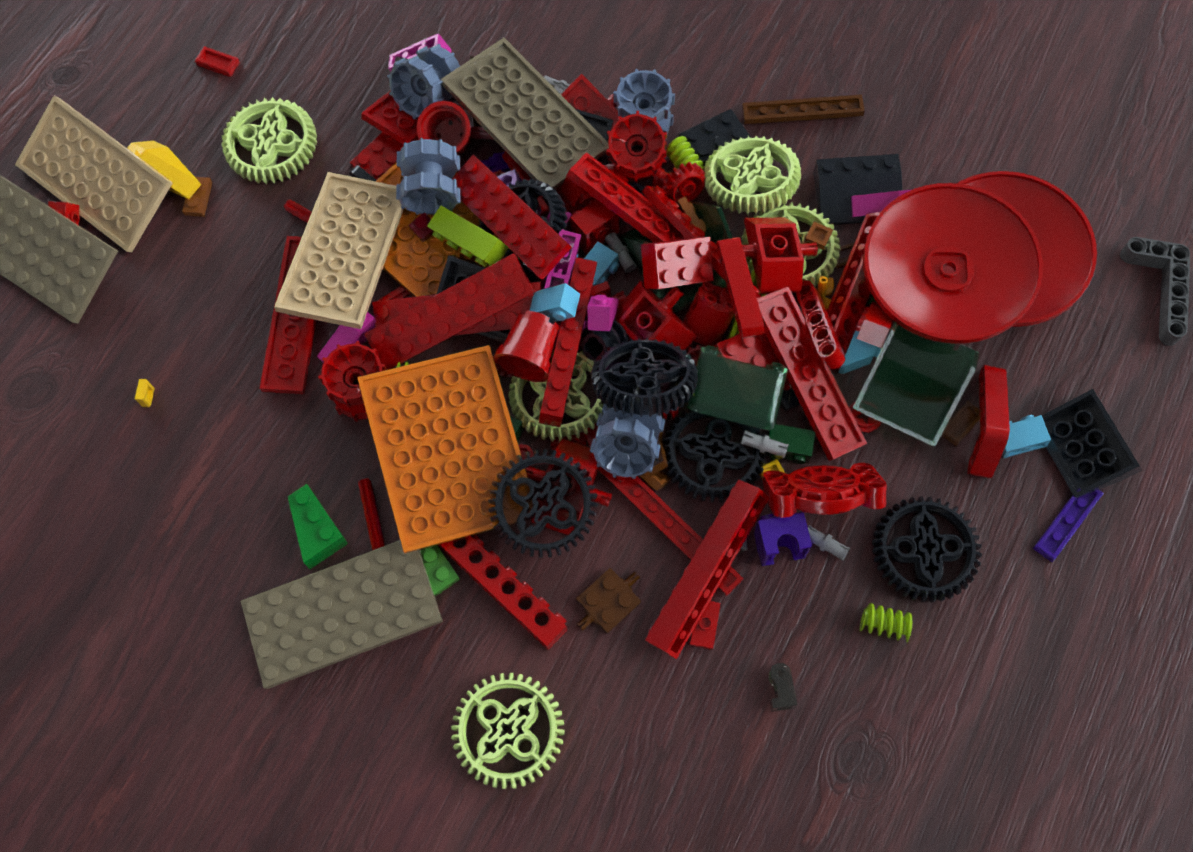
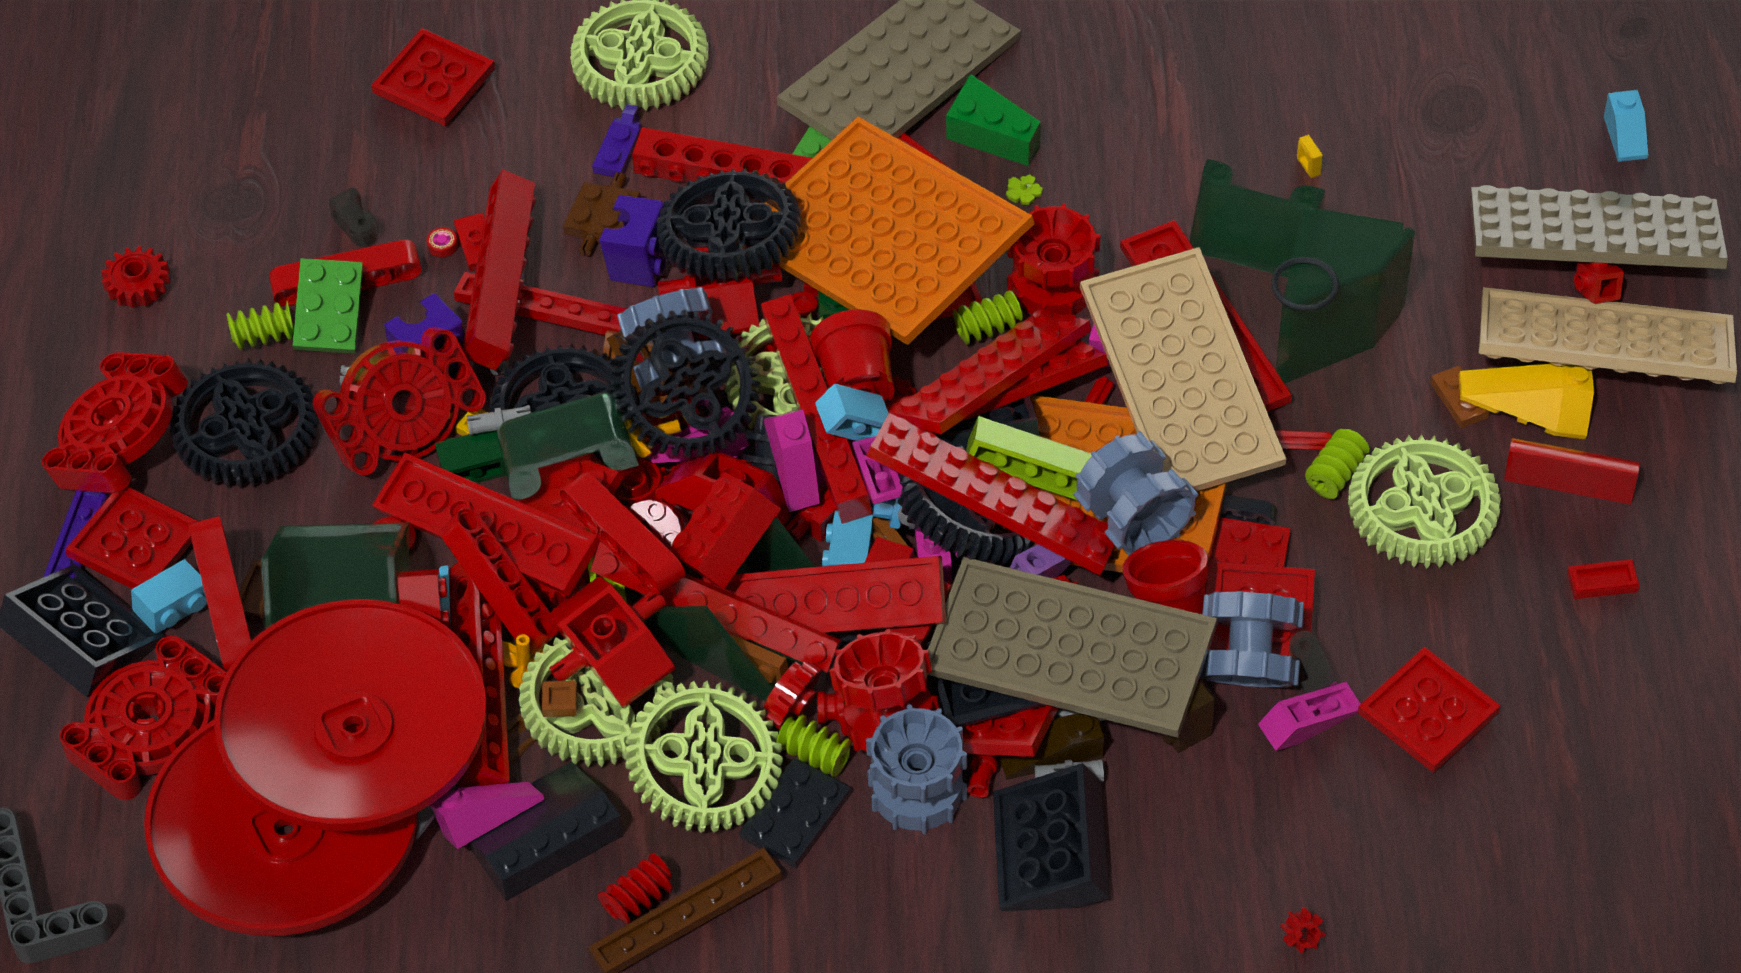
camera: 150 degrees right, 15 degrees down
(179, 116) = (1571, 471): none -> red brick
(219, 255) = (1373, 277): none -> clear green windscreen
(233, 367) = (1248, 224): none -> clear green windscreen
(240, 241) = (1335, 284): none -> black tyre
(297, 181) = (1336, 463): none -> lime piece
(329, 472) = (1023, 190): none -> lime plant
(359, 35) = (1428, 709): none -> red plate
(565, 657) = (618, 143): none -> dark purple hinge
(598, 51) = (1051, 842): none -> black slope
(605, 534) = (634, 250): none -> dark purple piece
(666, 796) = (433, 77): none -> red plate
(728, 636) = (442, 242): none -> red tile
(808, 641) = (381, 266): none -> red beam
(824, 125) = (636, 889): none -> red piece
(834, 611) = (327, 306): none -> bright green plate
(971, 715) = (136, 277): none -> red gear
(1032, 492) = (131, 538): none -> red plate
(1039, 590) = (115, 422): none -> red piece
(1075, 348) = (115, 714): none -> red piece

